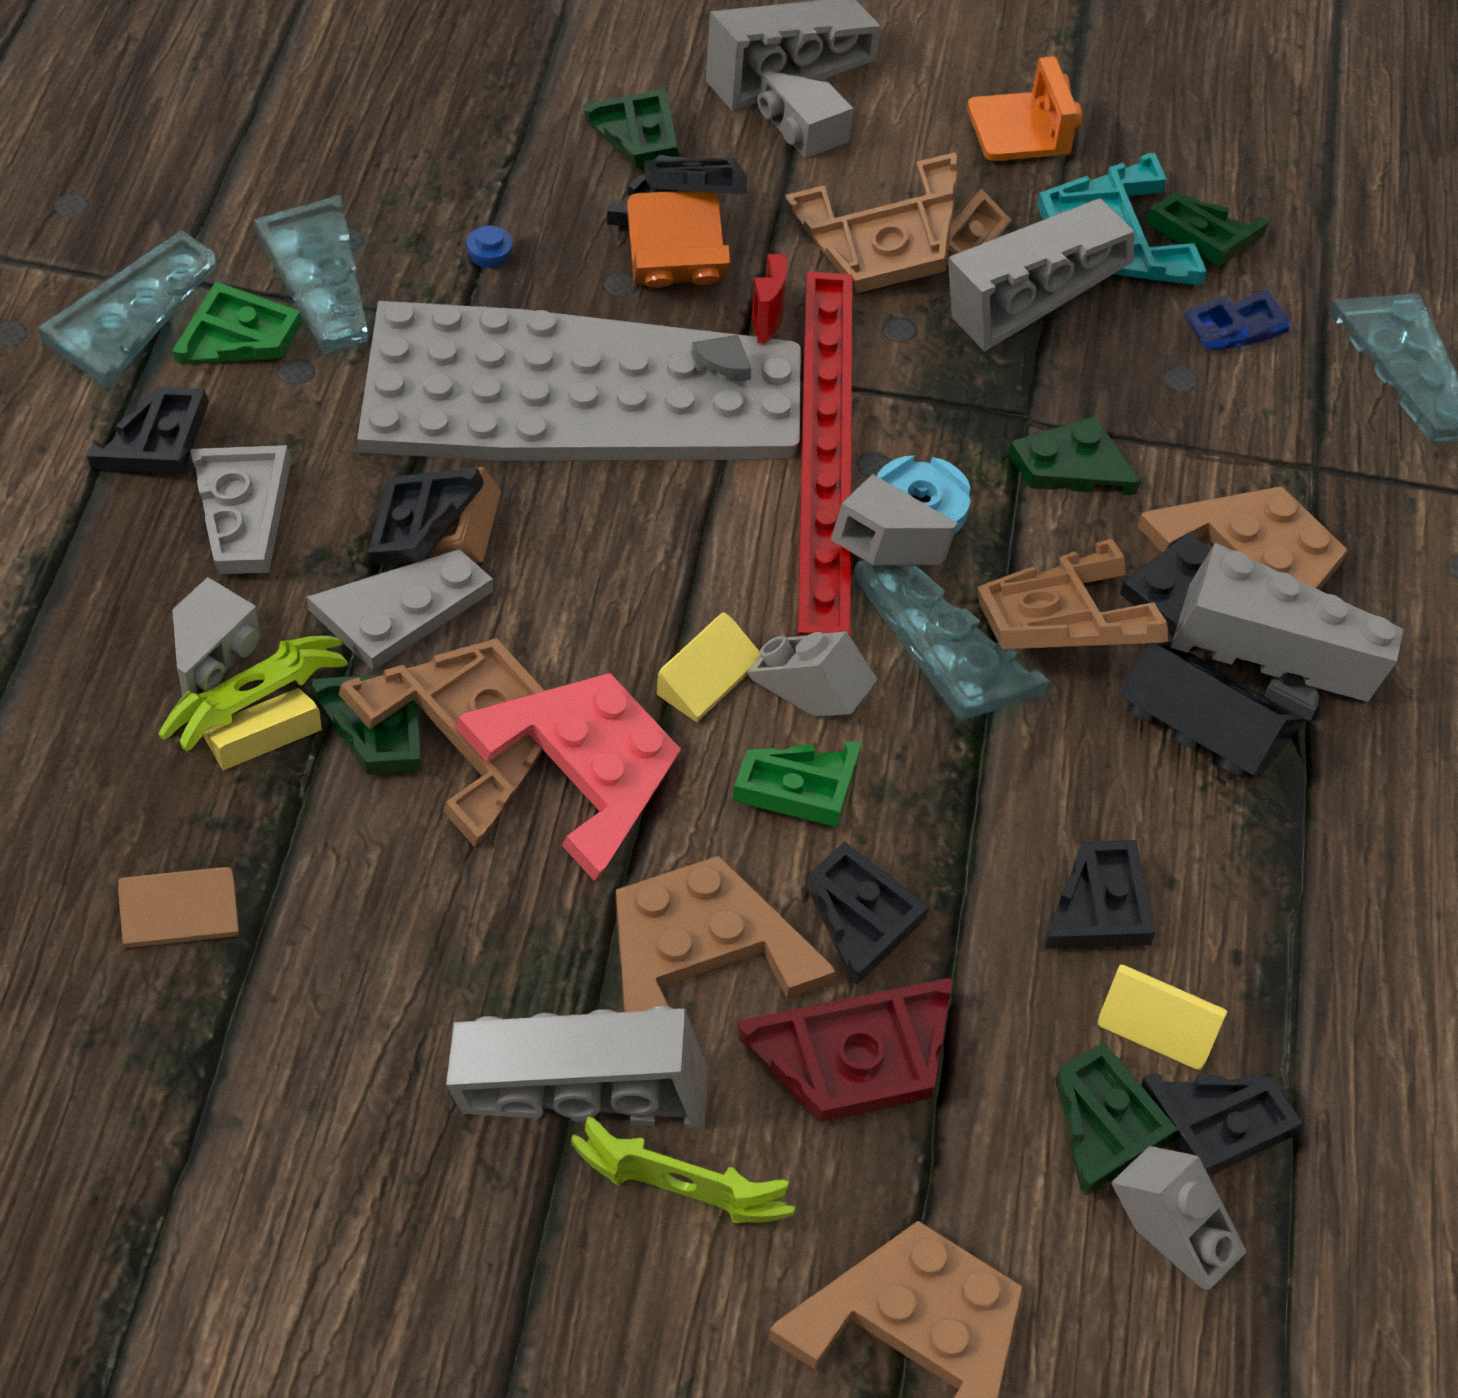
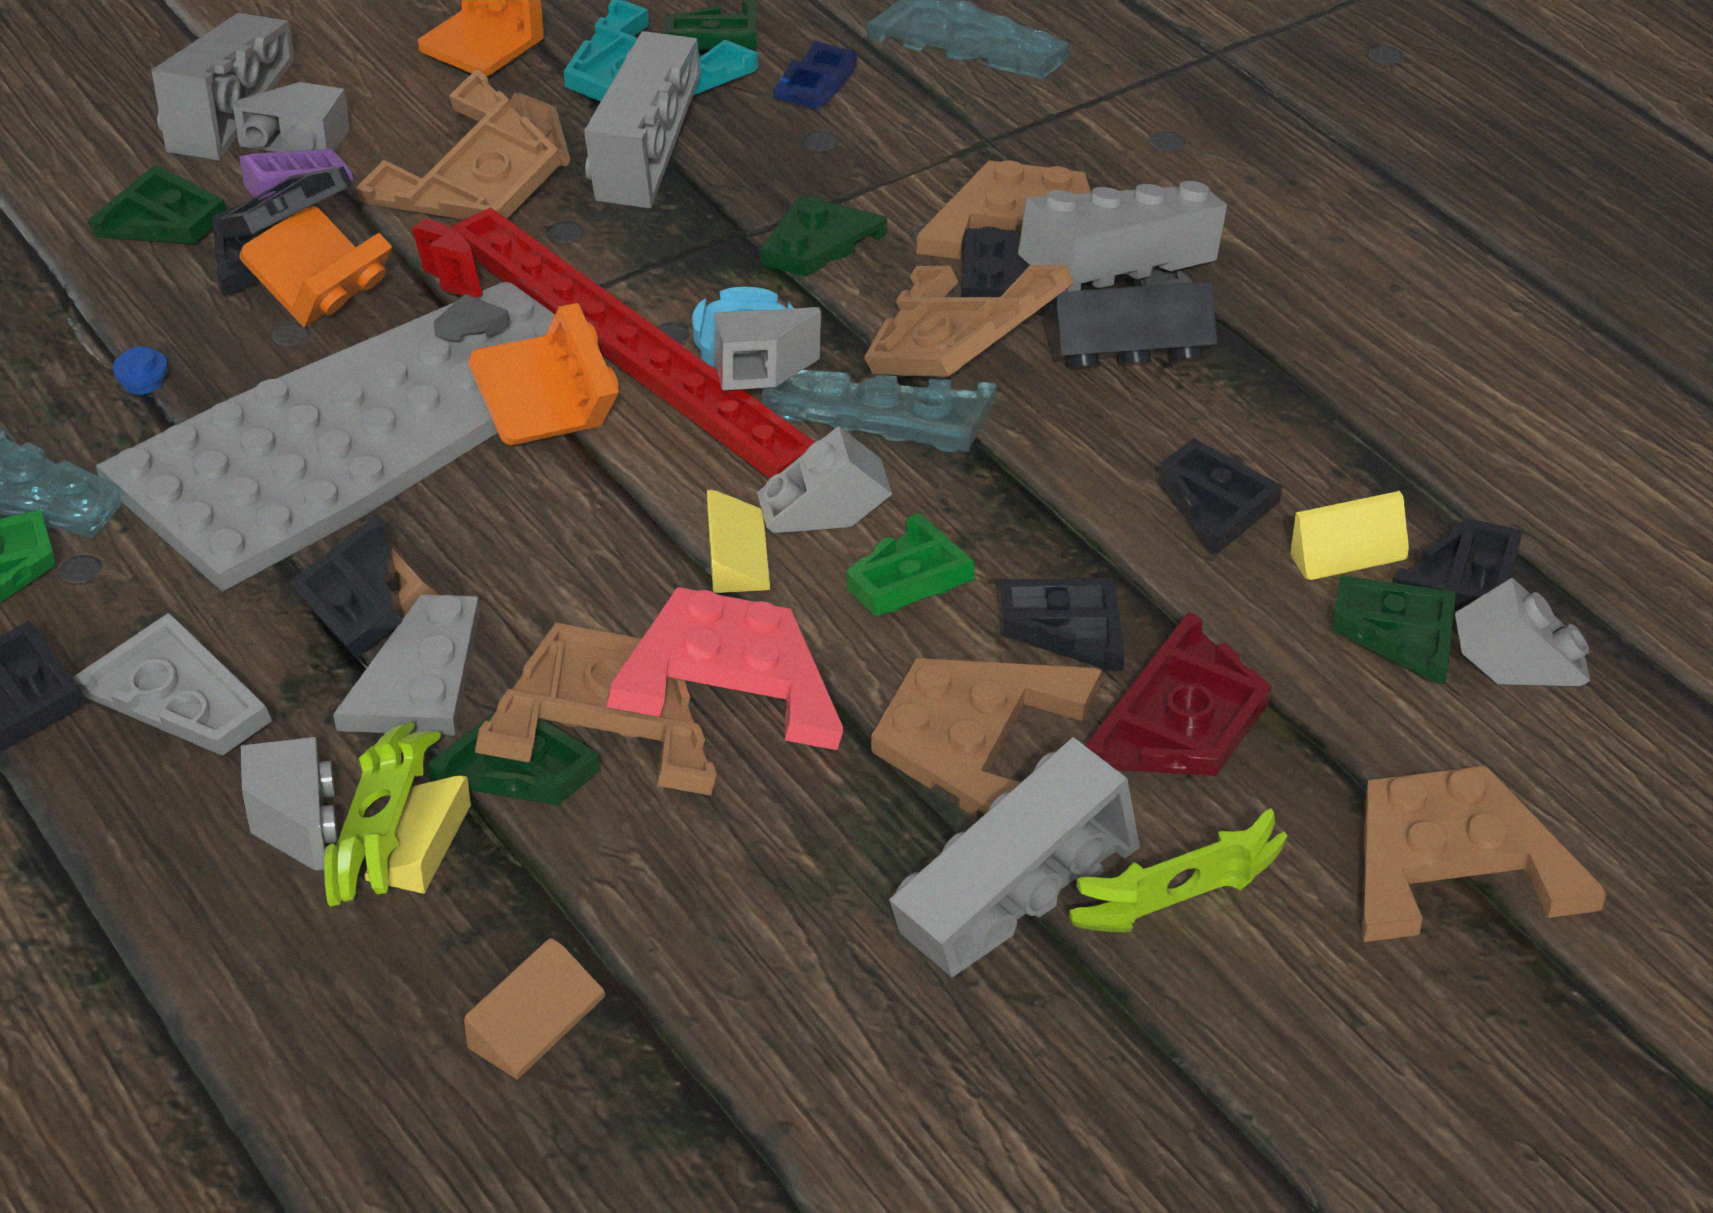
camera: 40 degrees left, 10 degrees down
(711, 443) = (546, 381): none -> orange bracket
(756, 149) = (265, 170): none -> medium lavender slope

